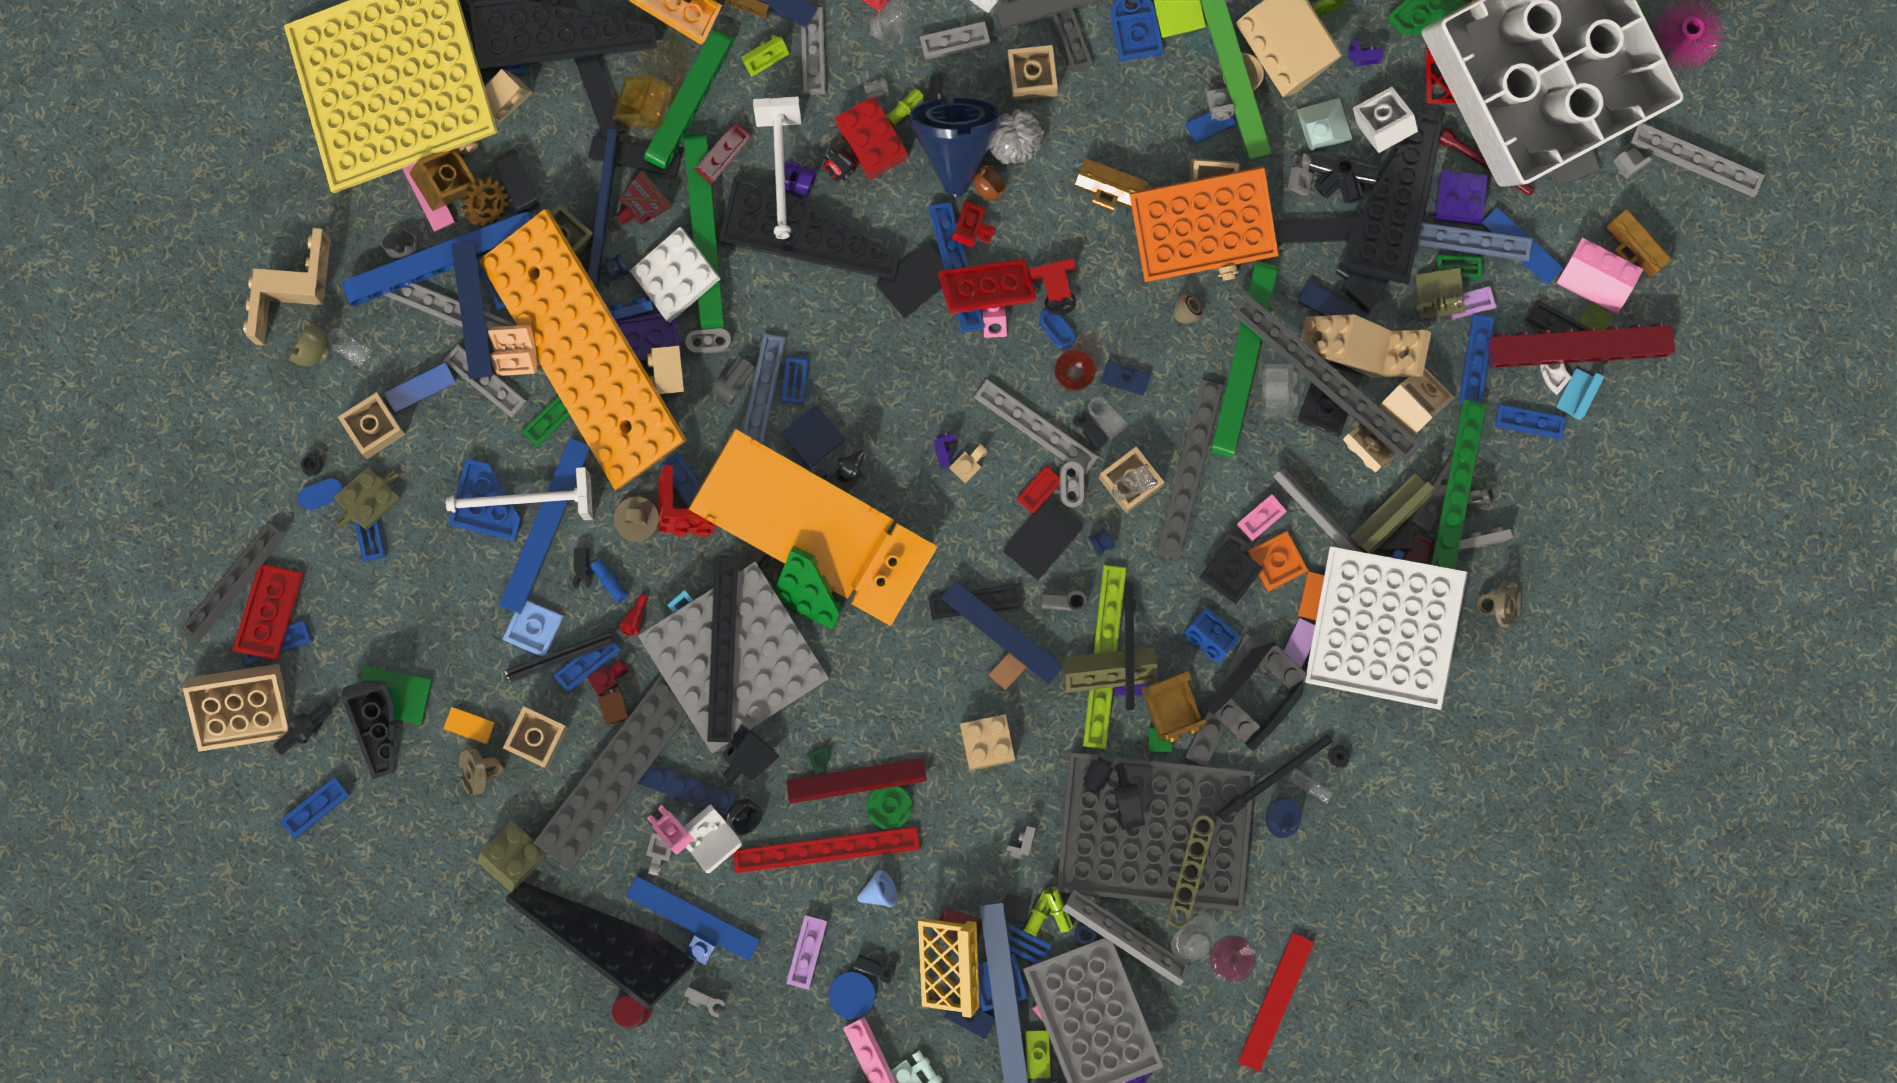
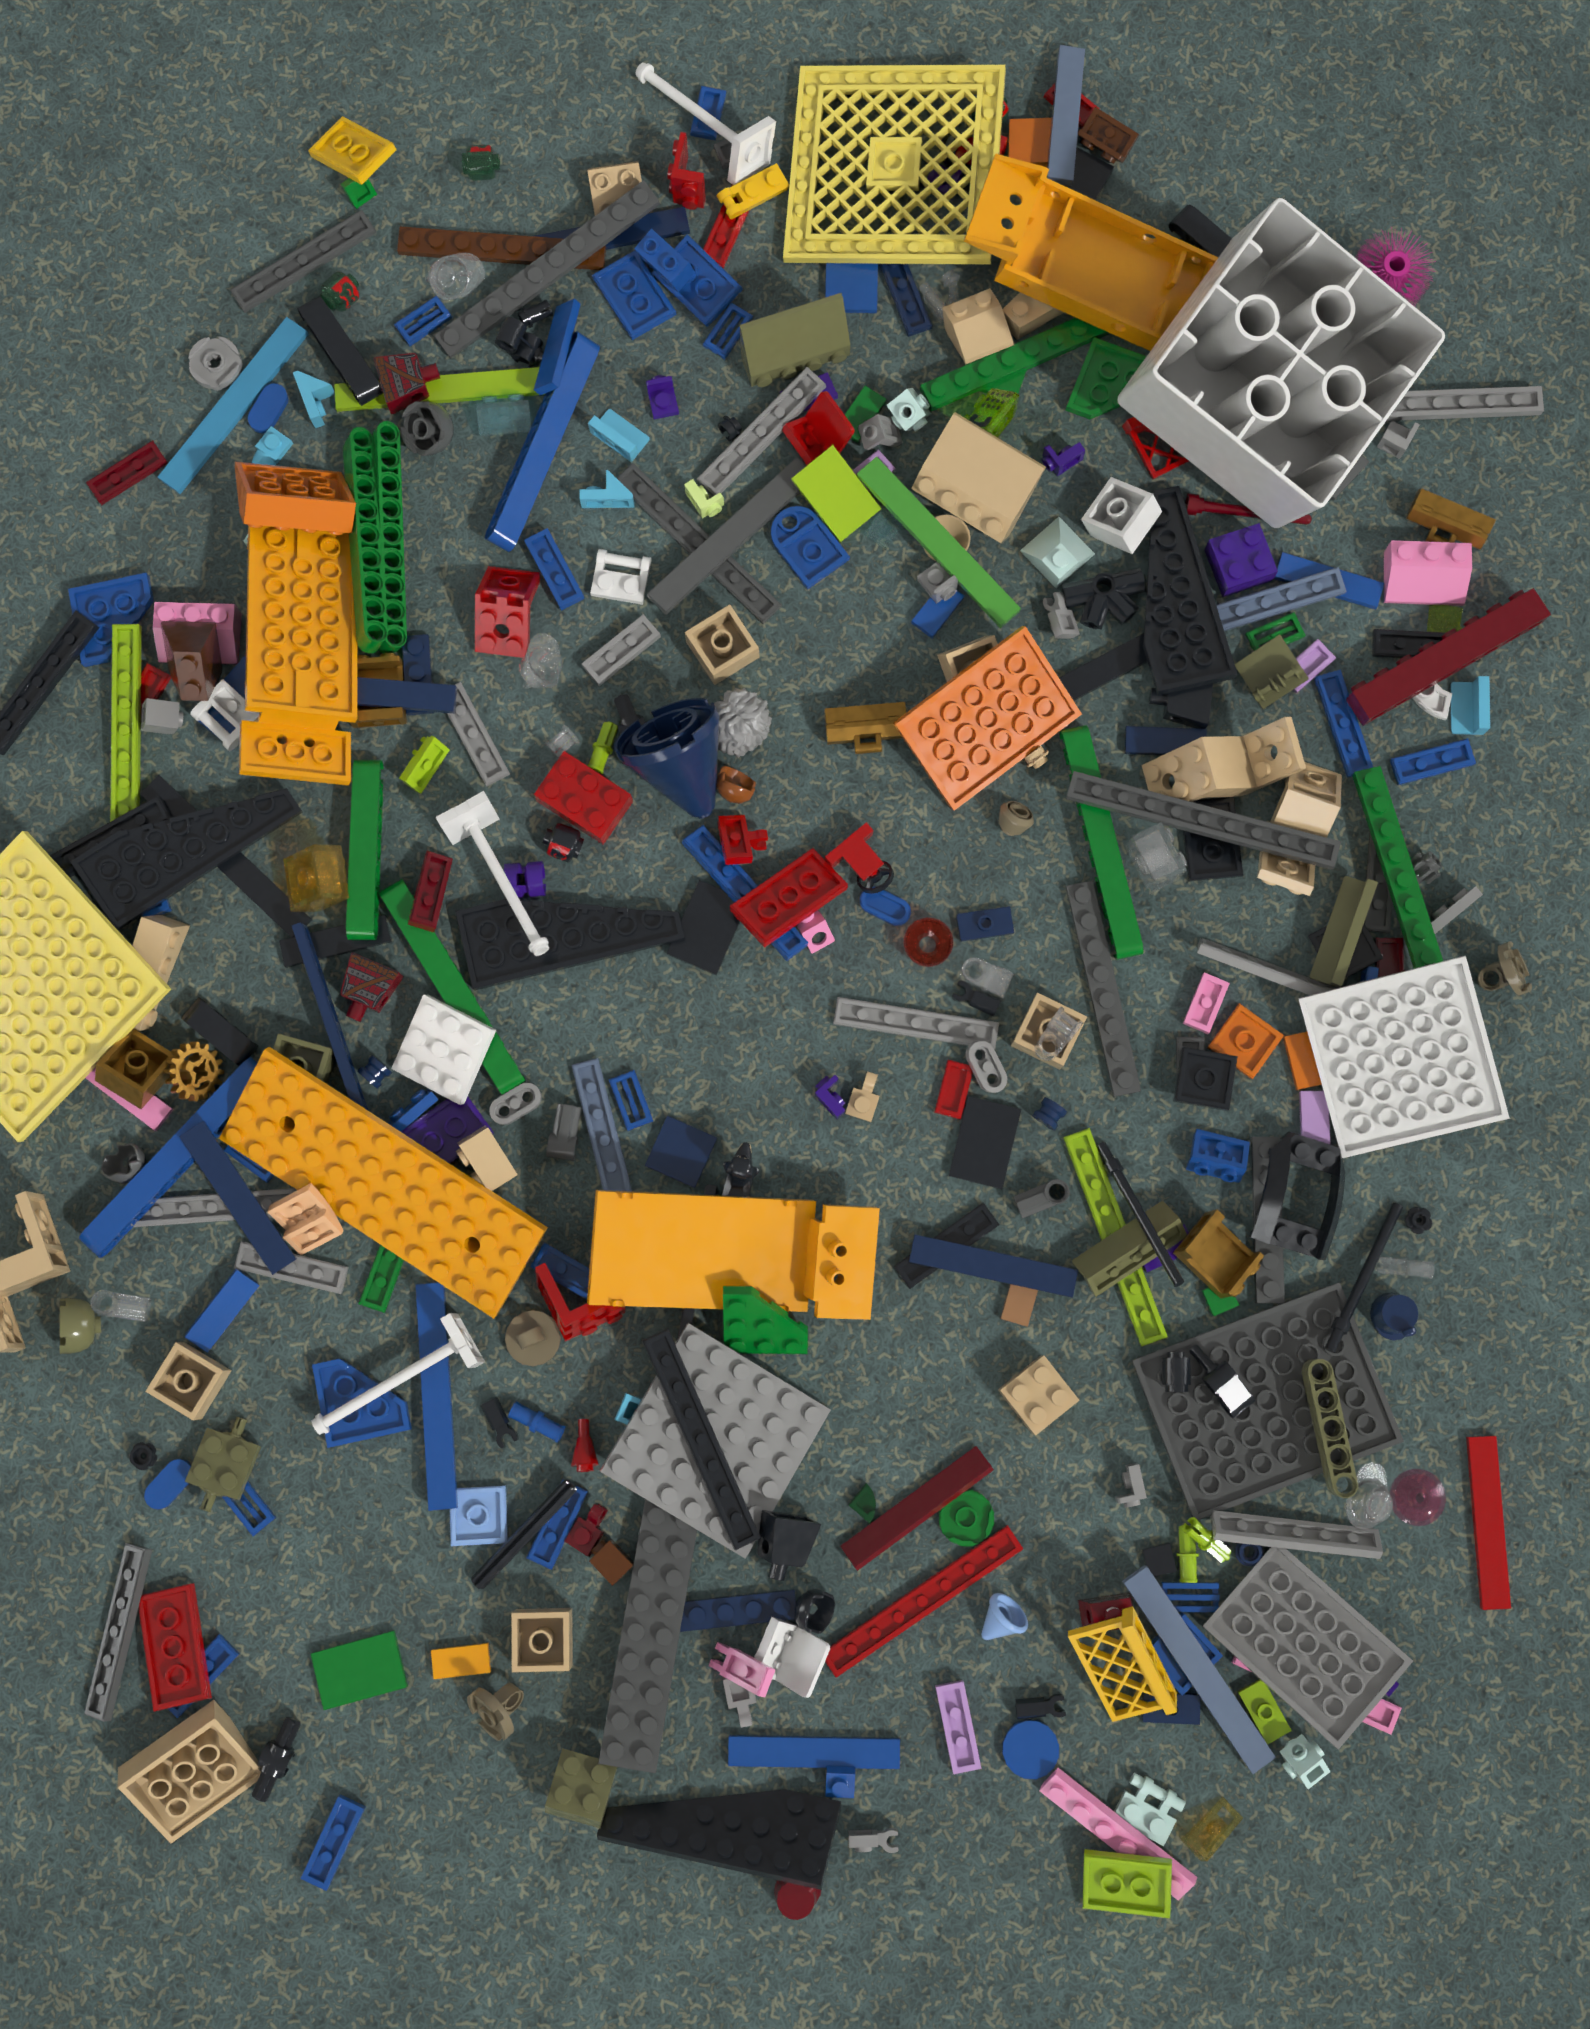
camera: 25 degrees left, 0 degrees up
(372, 719) = (349, 1713): black wedge -> none

